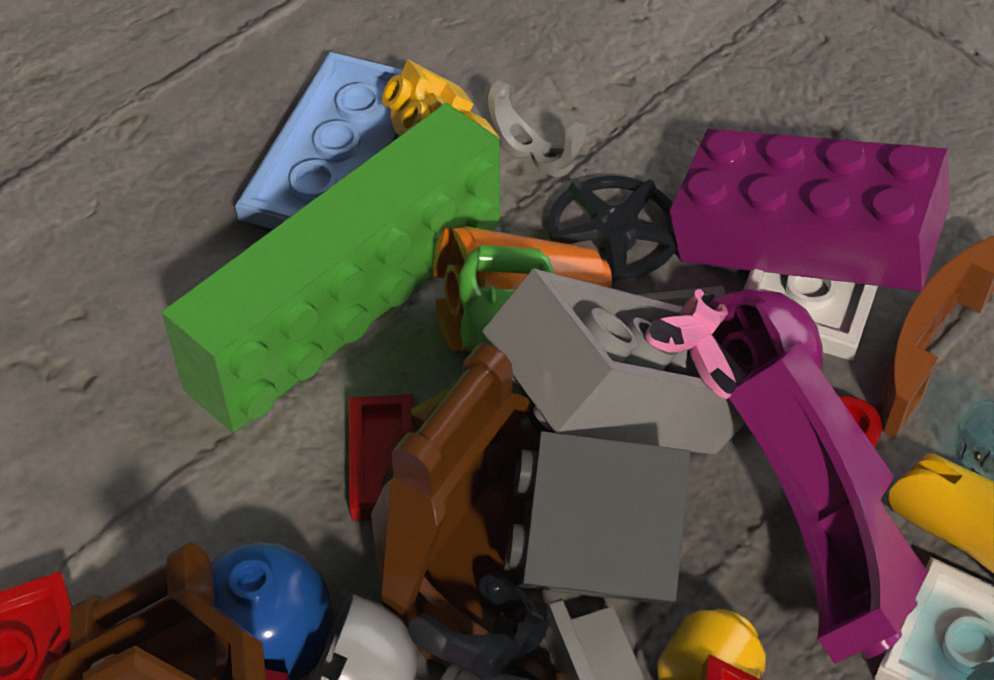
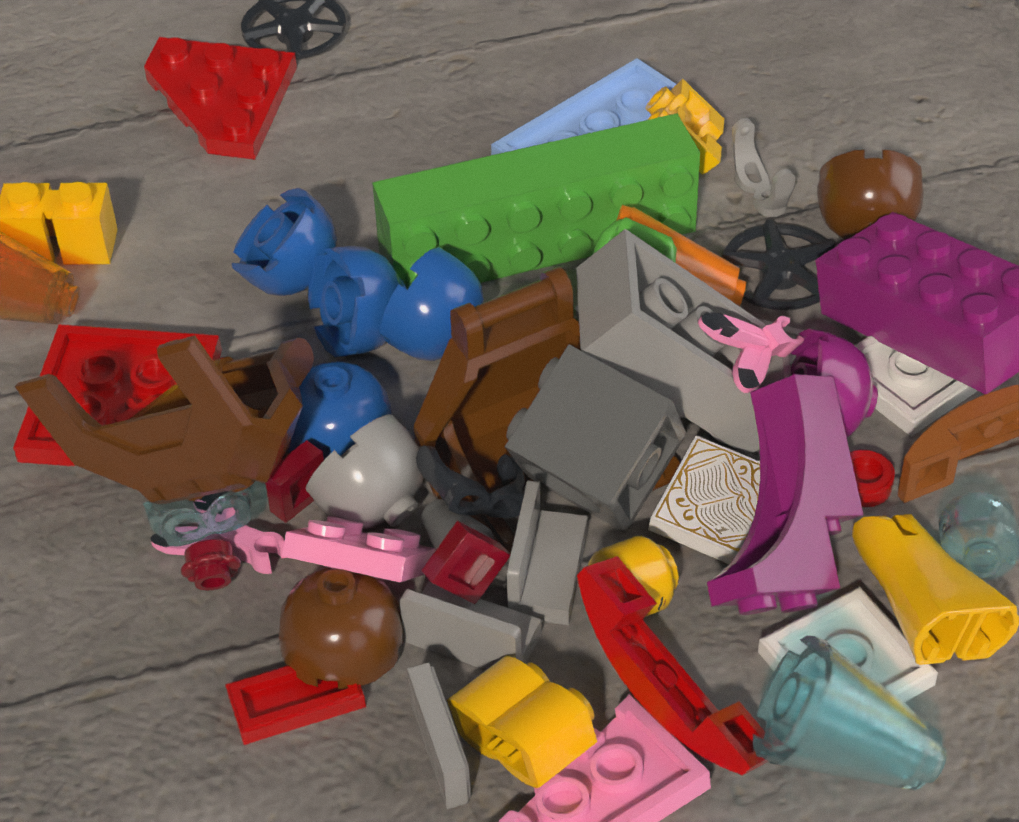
camera: 30 degrees right, 5 degrees down
(79, 422) = (282, 244): none -> blue cylinder
(201, 458) = (352, 294): none -> blue cylinder
(308, 432) = (419, 316): none -> blue cylinder
(664, 122) = (861, 190): none -> reddish brown cylinder
(740, 530) = (709, 500): none -> tile

